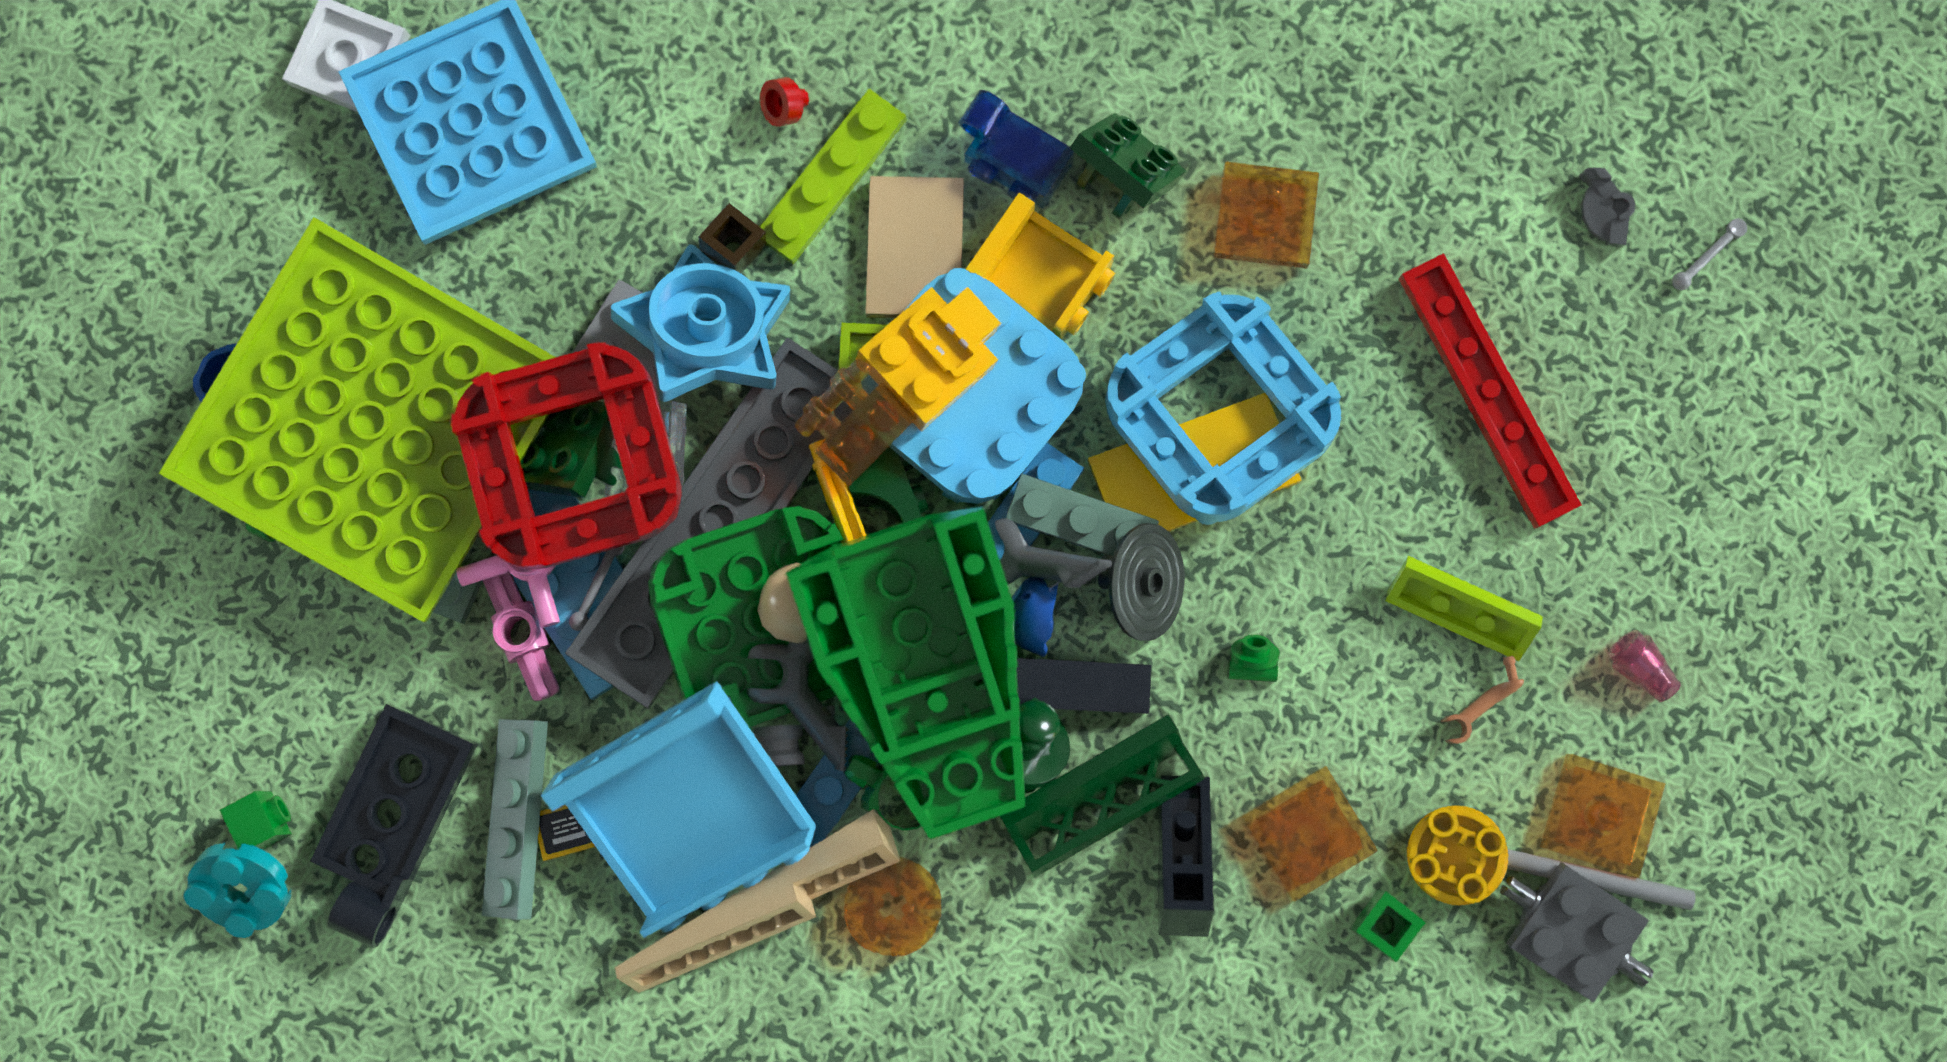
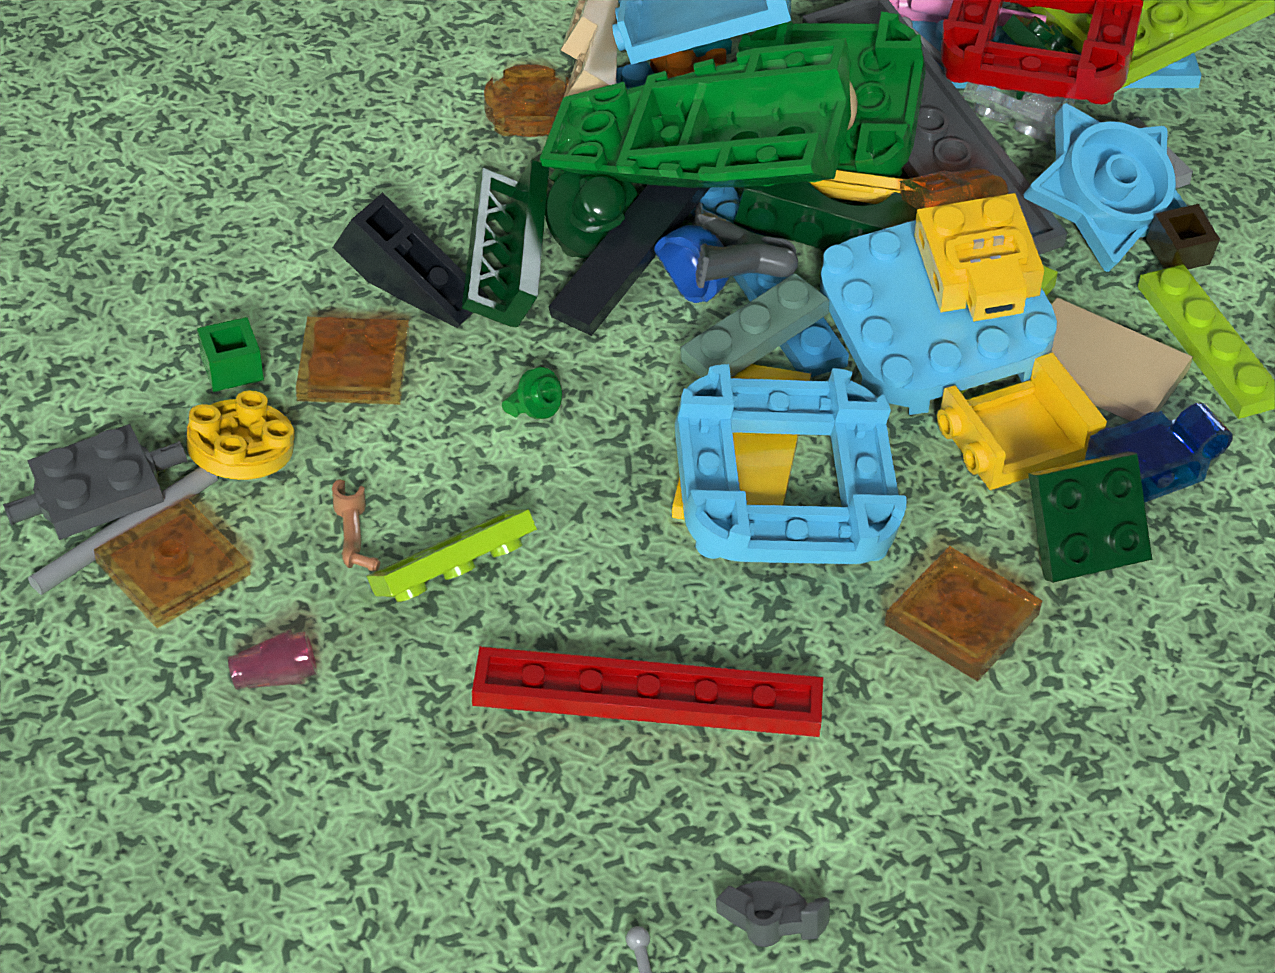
camera: 115 degrees right, 35 degrees down
(1145, 581) = (664, 336): pearl dark grey shield -> none

